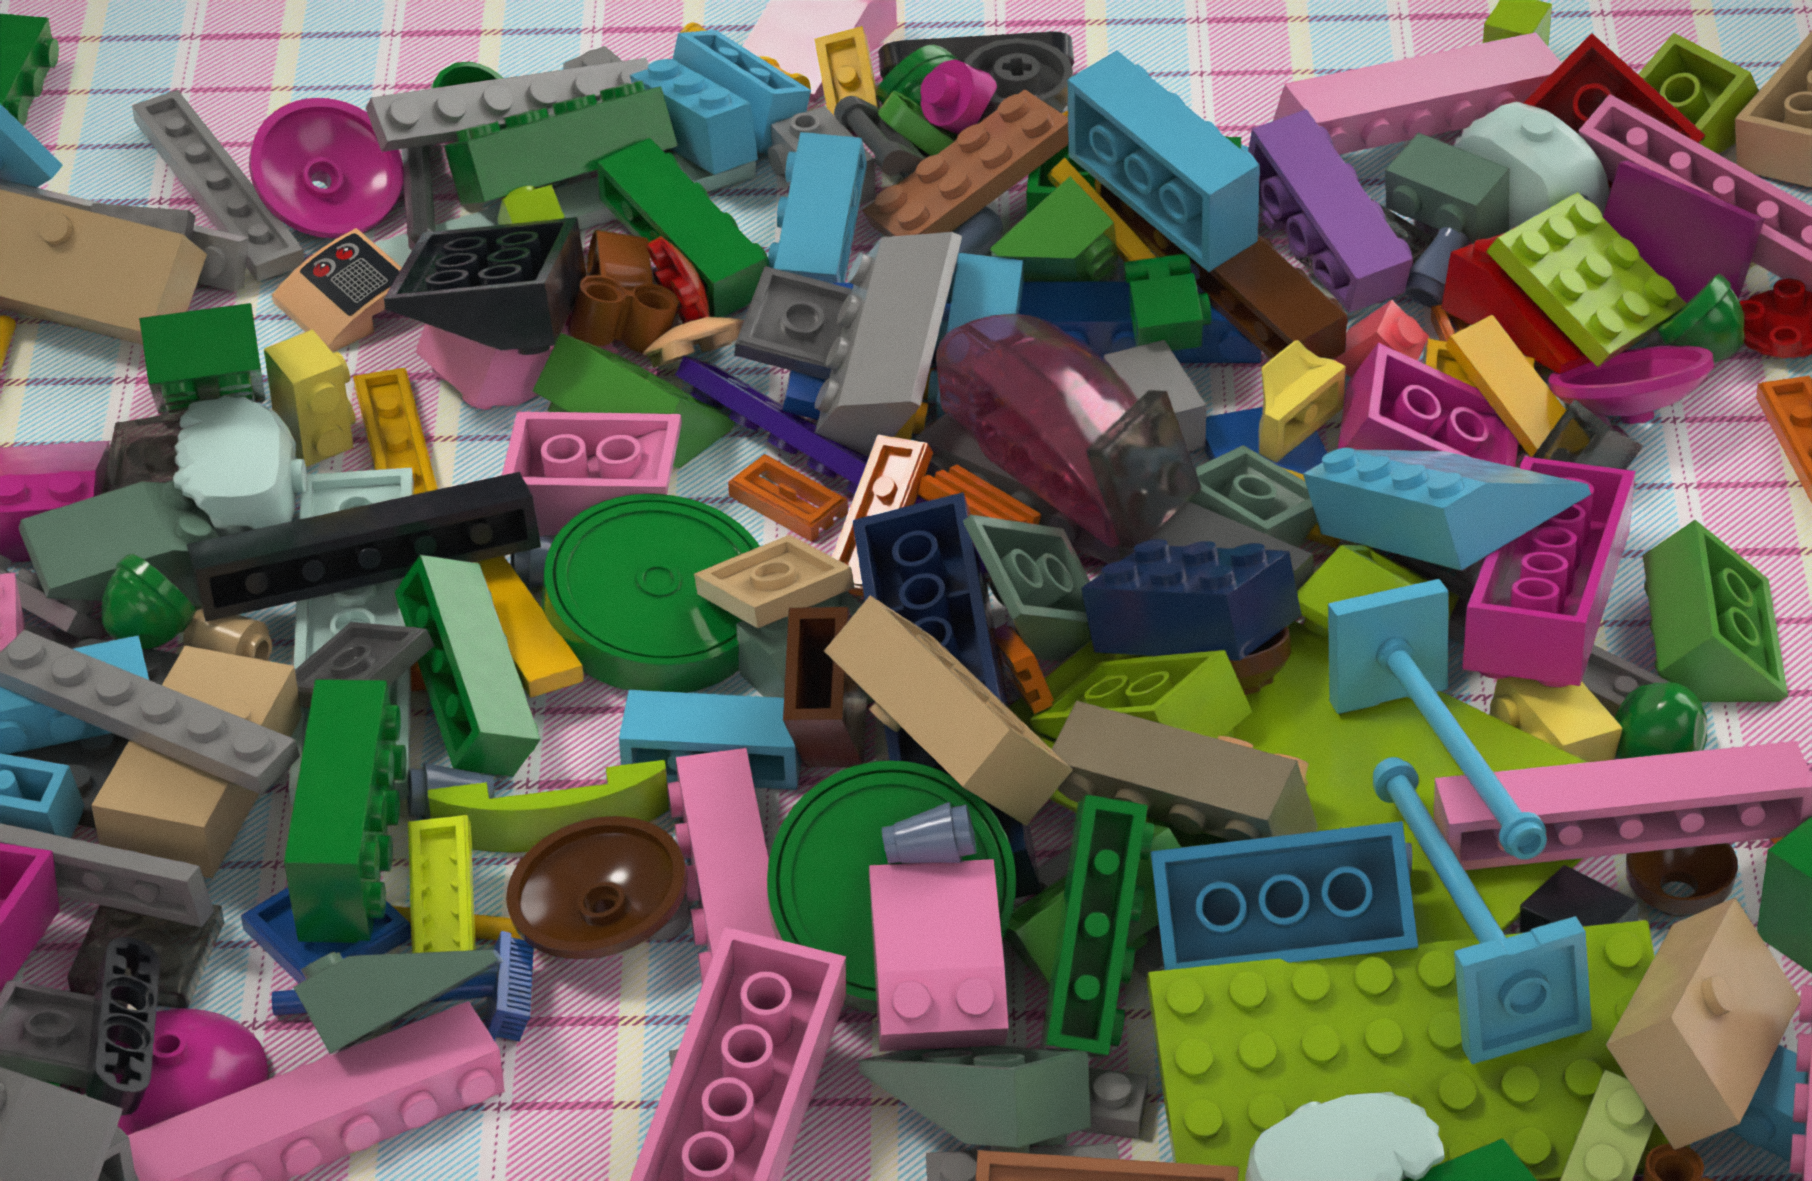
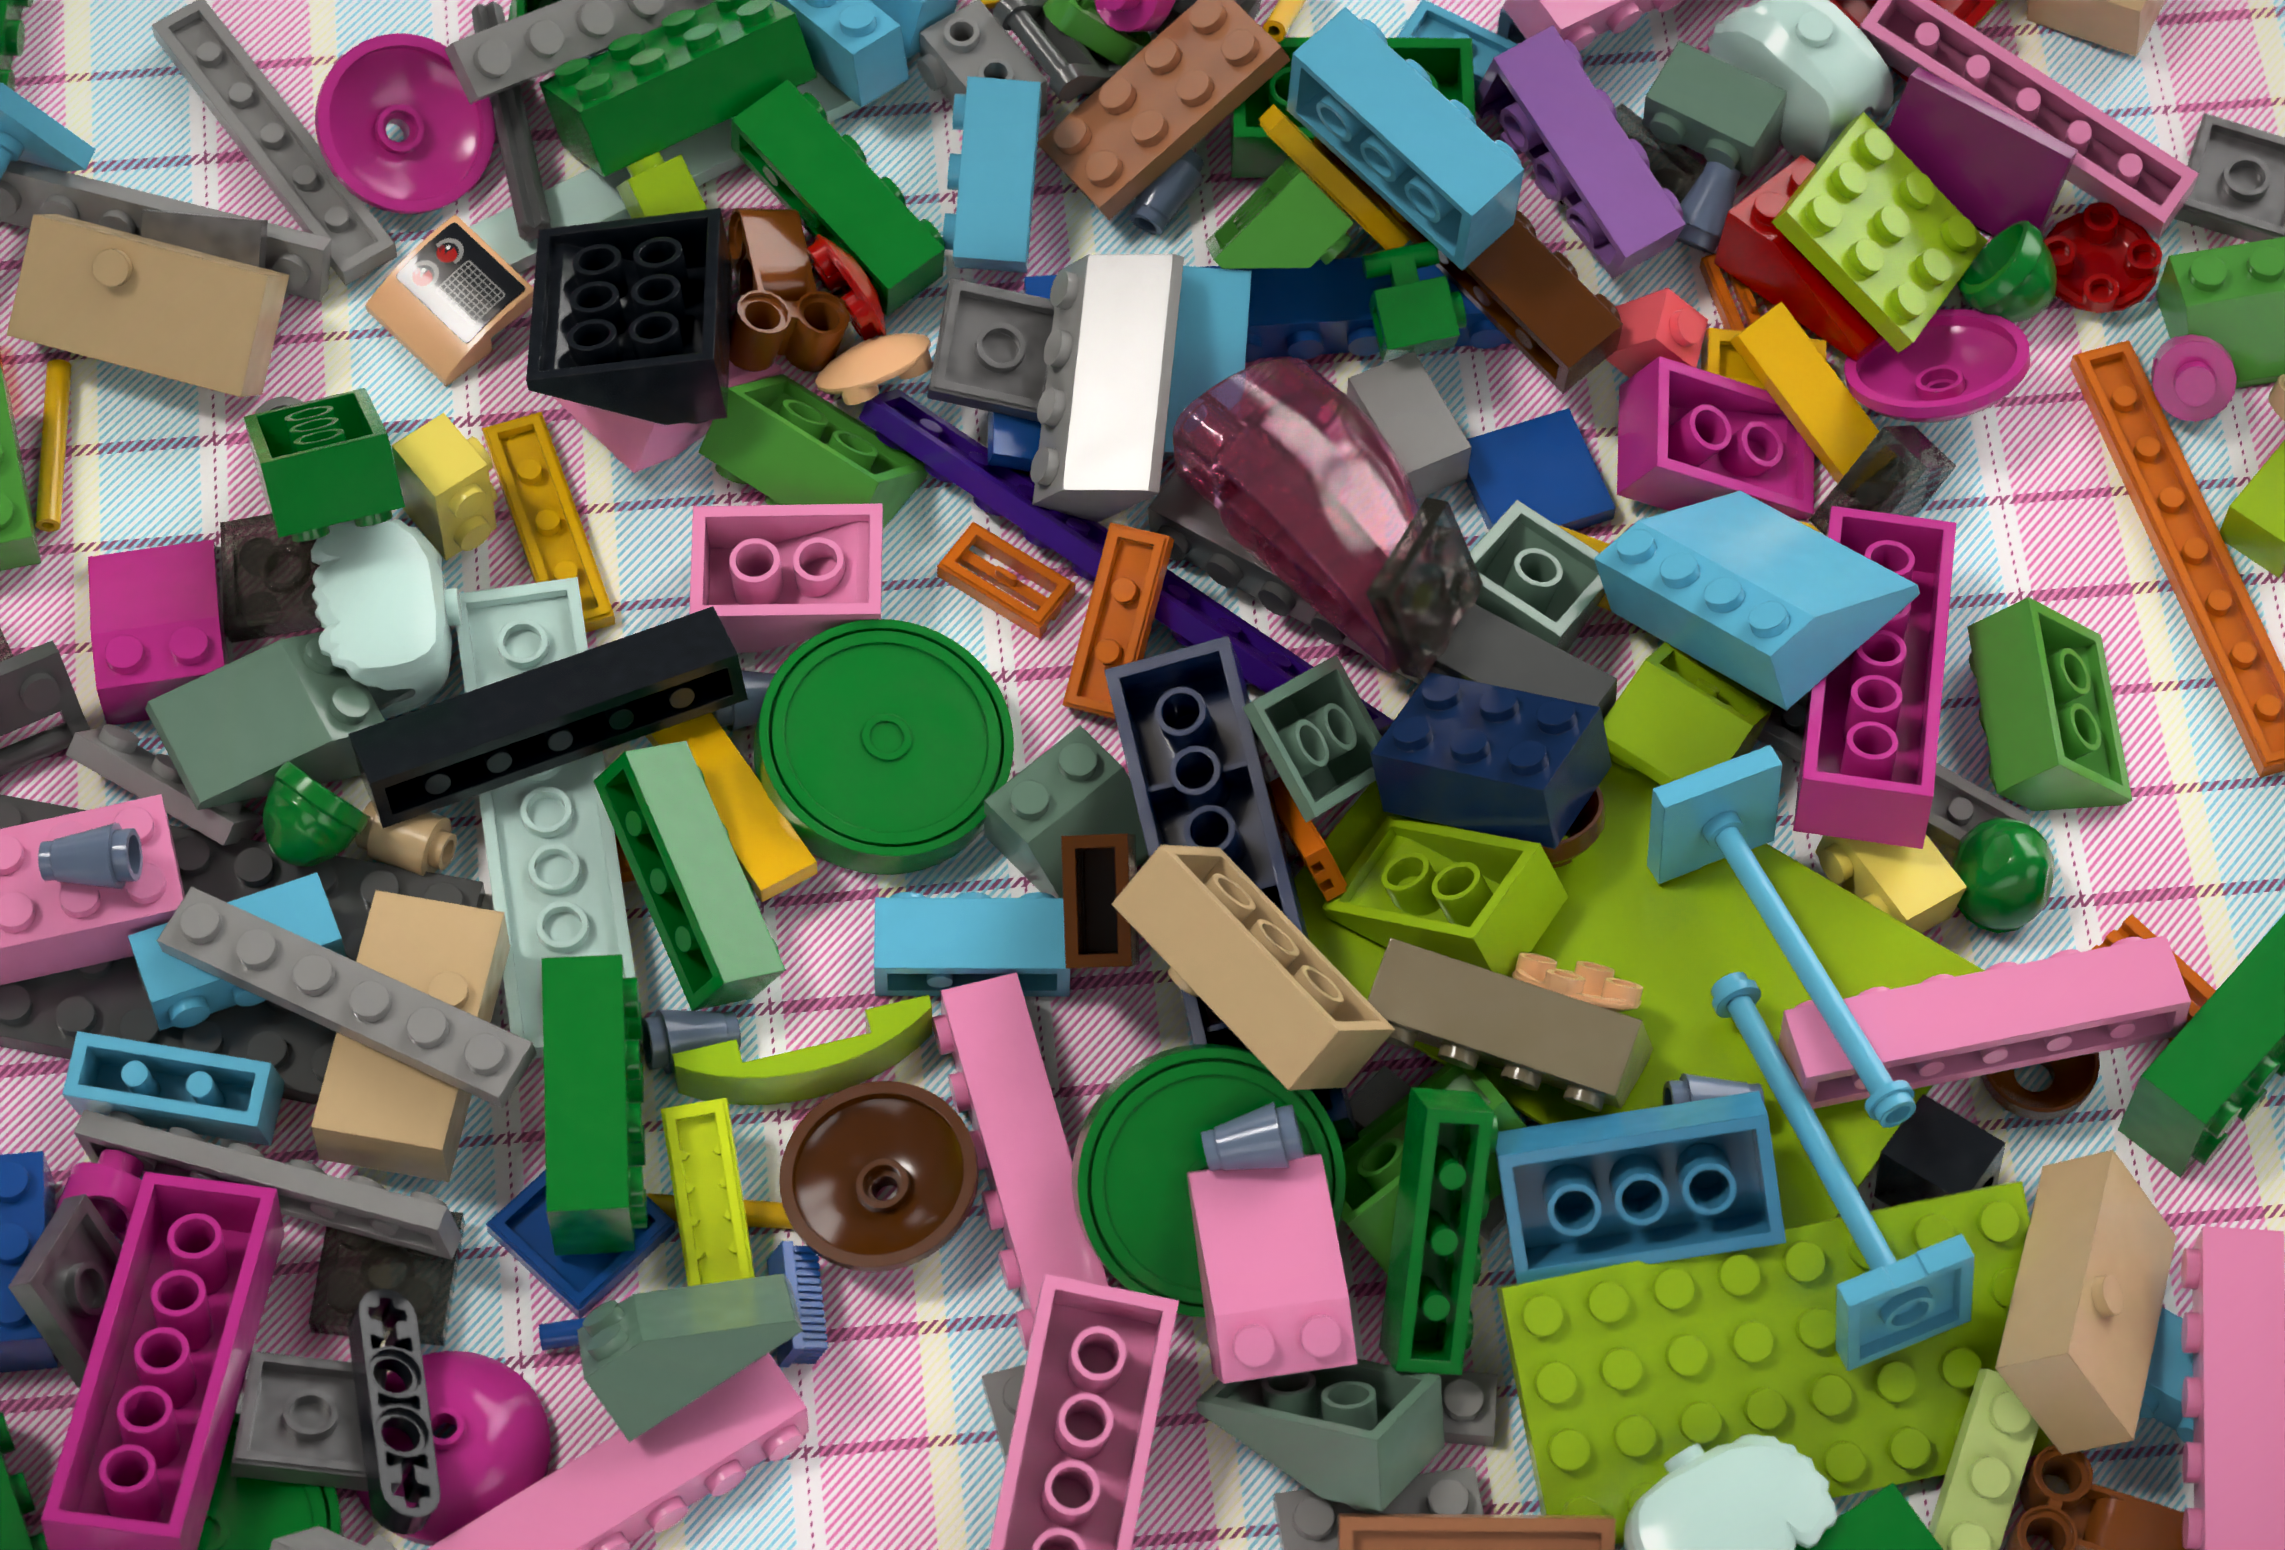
camera: 10 degrees left, 20 degrees up
(363, 653) = (568, 889): flat silver tile -> none
(772, 579) = (1021, 745): tan plate -> none
(981, 496) = (1229, 602): orange tile -> none
(1297, 398) = (1568, 428): light yellow slope -> none

